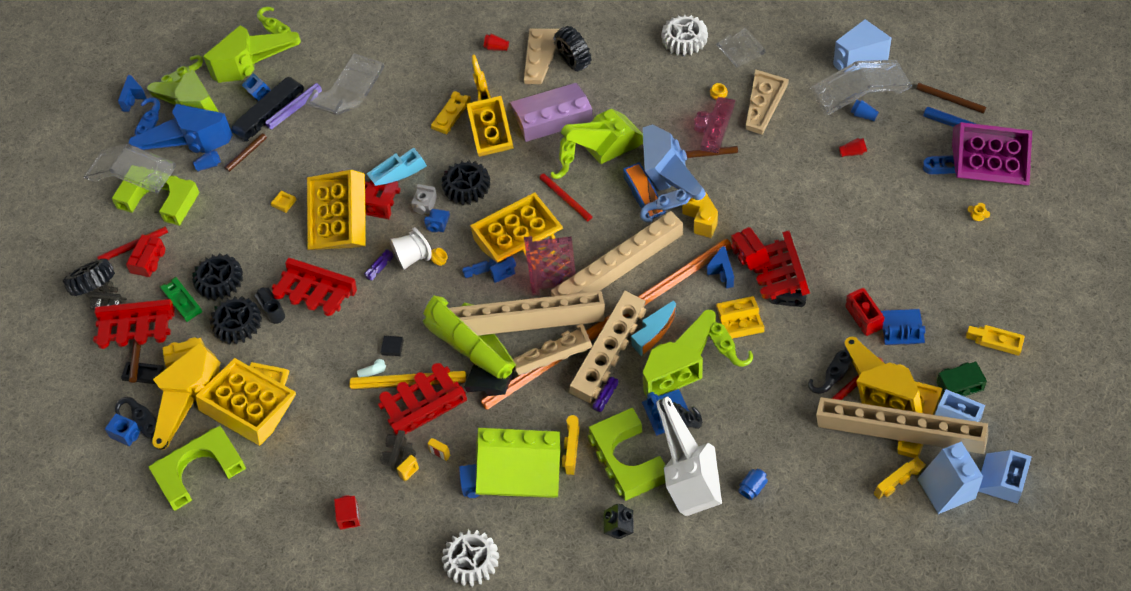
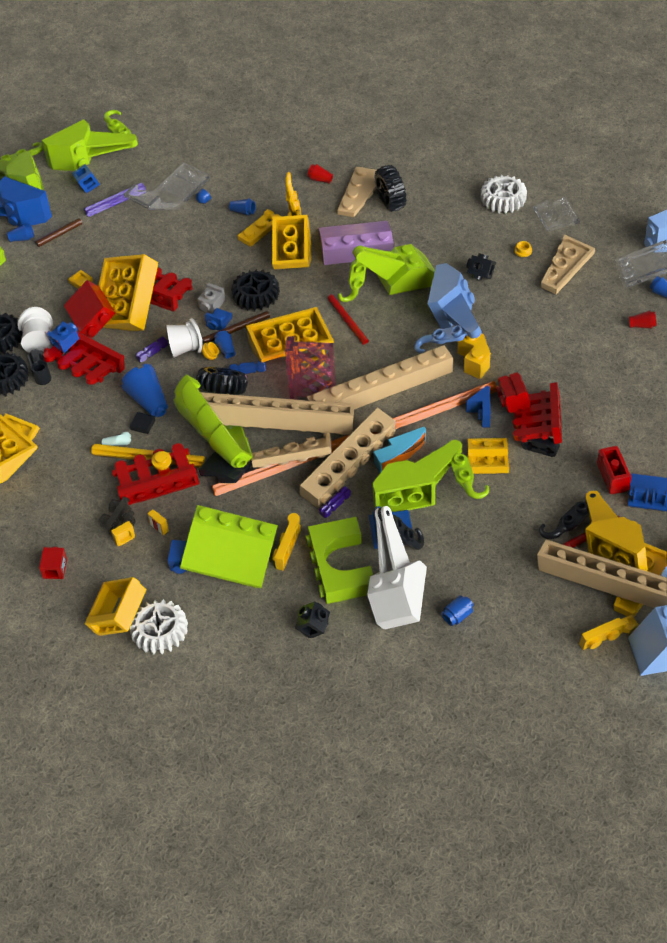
camera: 10 degrees right, 5 degrees down
(257, 267) = (35, 324): none -> white hat
(281, 95) = (74, 204): black beam -> none
(289, 269) = (63, 336): none -> blue brick
(305, 234) = (89, 309): none -> red brick
(383, 87) = (203, 196): none -> blue hinge
(388, 312) = (145, 389): none -> blue cone
(397, 168) = (194, 267): medium azure slope -> none
(409, 562) = (101, 618): none -> yellow window
(425, 384) = (161, 460): none -> yellow plate
(427, 92) = (243, 206): none -> blue cone
(451, 246) = (225, 344): none -> blue cone
(454, 227) = (238, 326): none -> reddish brown bar
(462, 288) = (222, 380): none -> black gear
(503, 269) = (268, 372): blue bracket -> none
(642, 188) = (422, 321): slope -> none
(688, 115) = (480, 266): none -> black brick
(714, 124) = (510, 277): clear pink plate -> none
(723, 150) = (501, 302): reddish brown bar -> none

